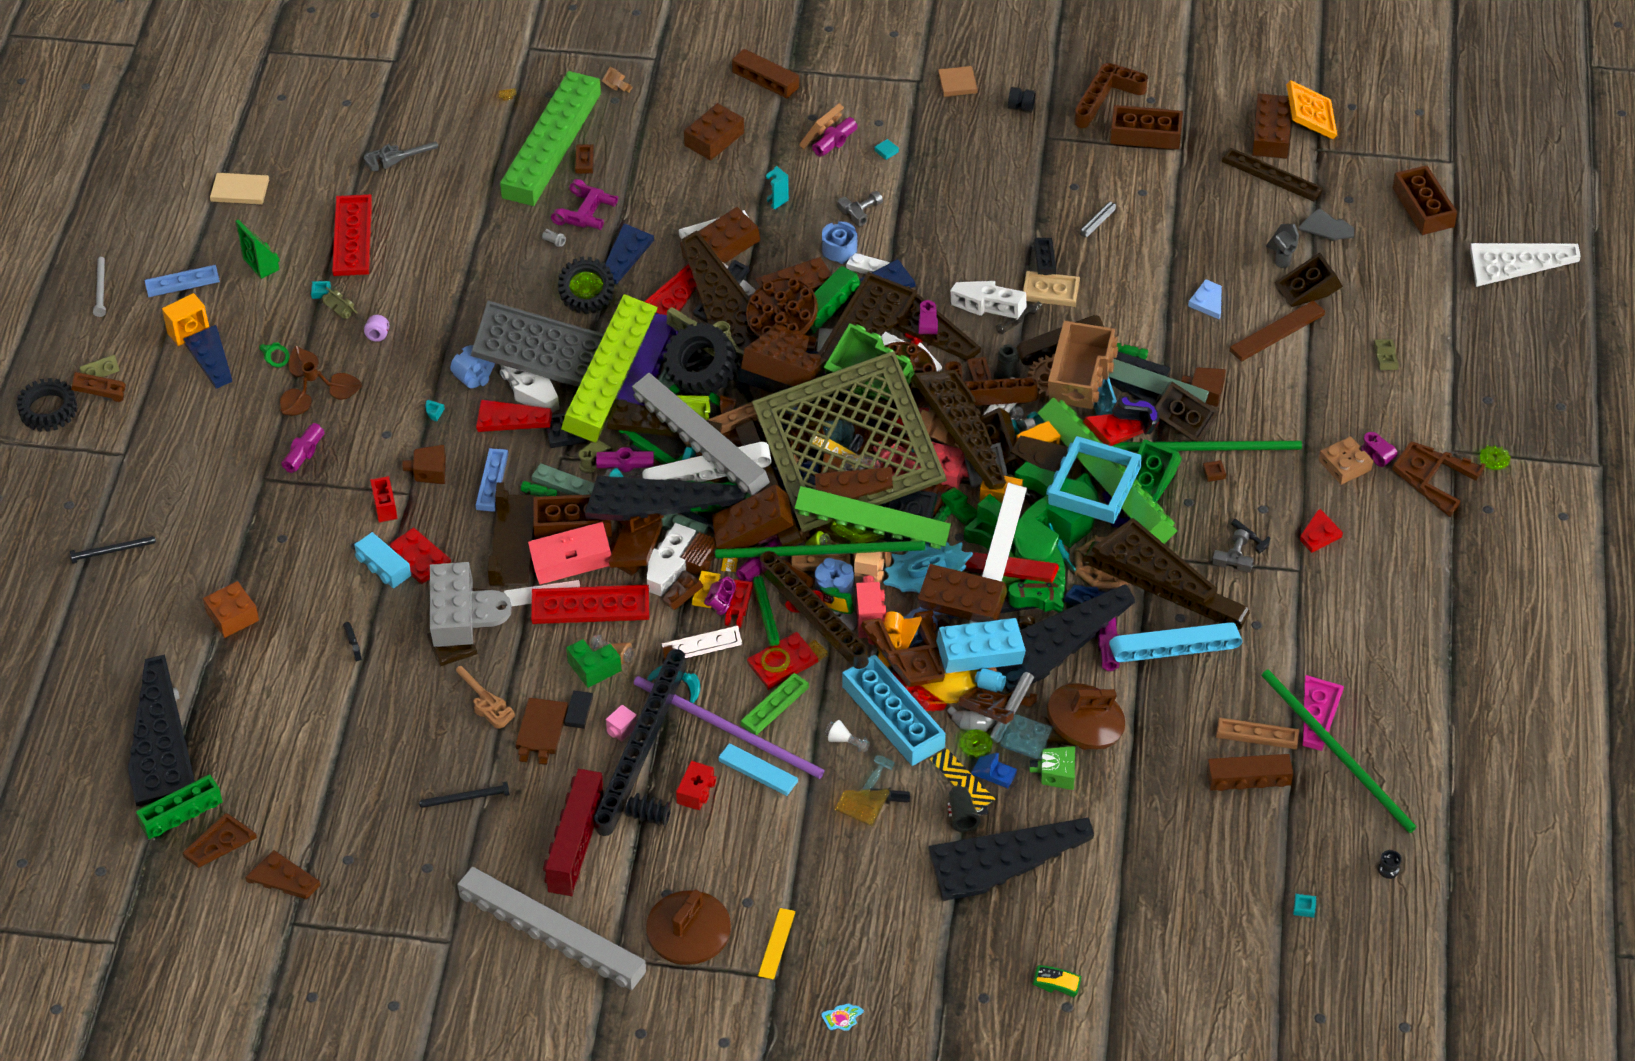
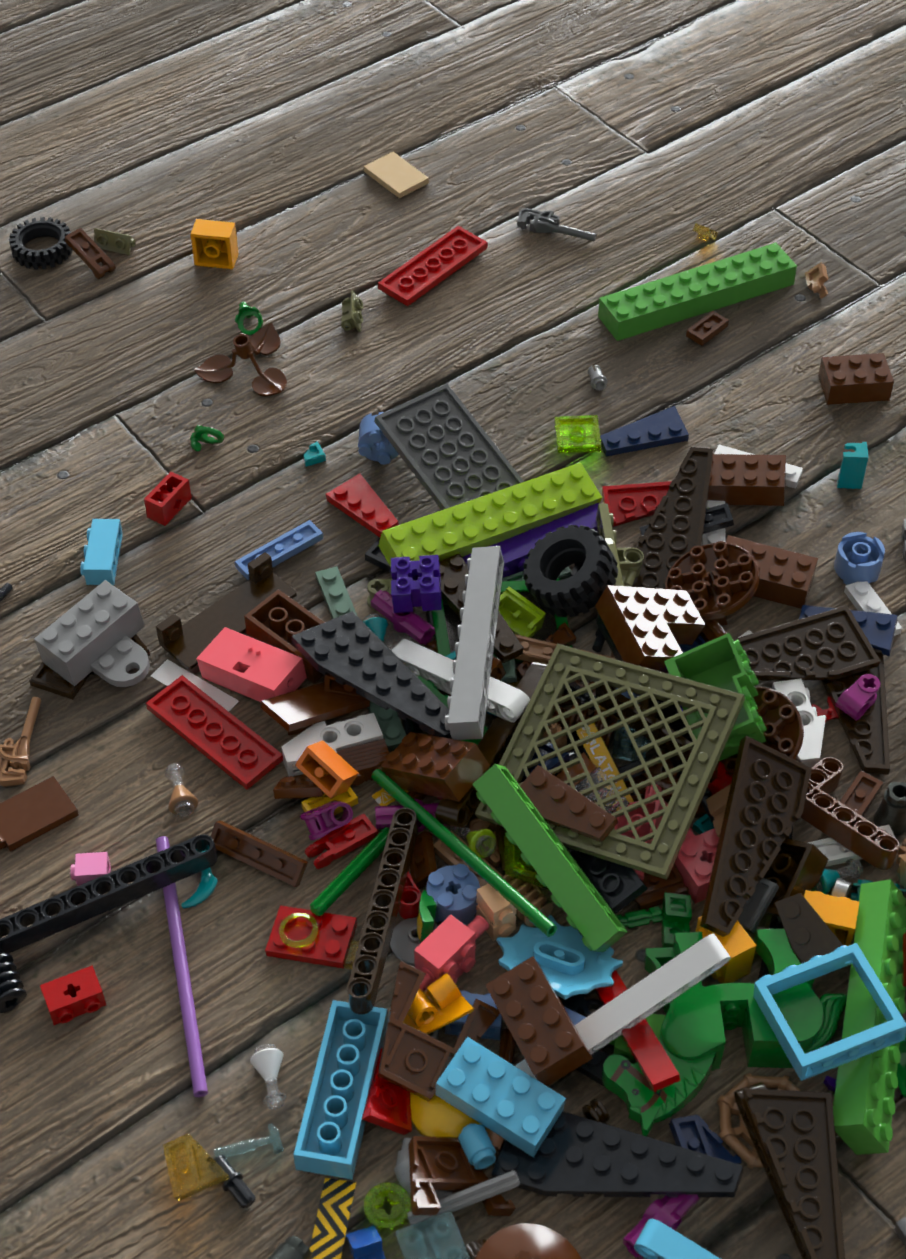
camera: 45 degrees right, 0 degrees up
(100, 310) = (173, 198): light grey bar -> none
(182, 281) = (259, 216): medium blue plate -> none
(210, 356) = (204, 286): dark blue wing -> none
(256, 252) = (335, 224): green slope -> none
(302, 448) = (170, 409): magenta piece -> none
(319, 289) = (359, 291): teal tile -> none
(346, 448) = (201, 435): none -> green piece
(376, 328) = (352, 352): lavender head -> none
(419, 554) = (139, 569): red plate -> none
(428, 464) = (245, 497): reddish brown torso -> none
(531, 388) = (410, 497): white brick -> none
(537, 490) = (306, 590): green axle -> none
(578, 709) = (80, 825): black tile -> none
(583, 218) = (645, 376): magenta connector -> none
(586, 266) = (559, 414): black tyre -> none
(593, 666) = (140, 791): green brick -> none
(622, 430) = (416, 583): none -> dark purple brick
(693, 567) = (326, 769): none -> orange brick
(758, 769) = (151, 1033): medium azure tile -> none
(774, 704) = (247, 976): bright green plate -> none
(834, 294) = (782, 605): green brick -> none
(1065, 555) = (728, 1060): teal piece -> none

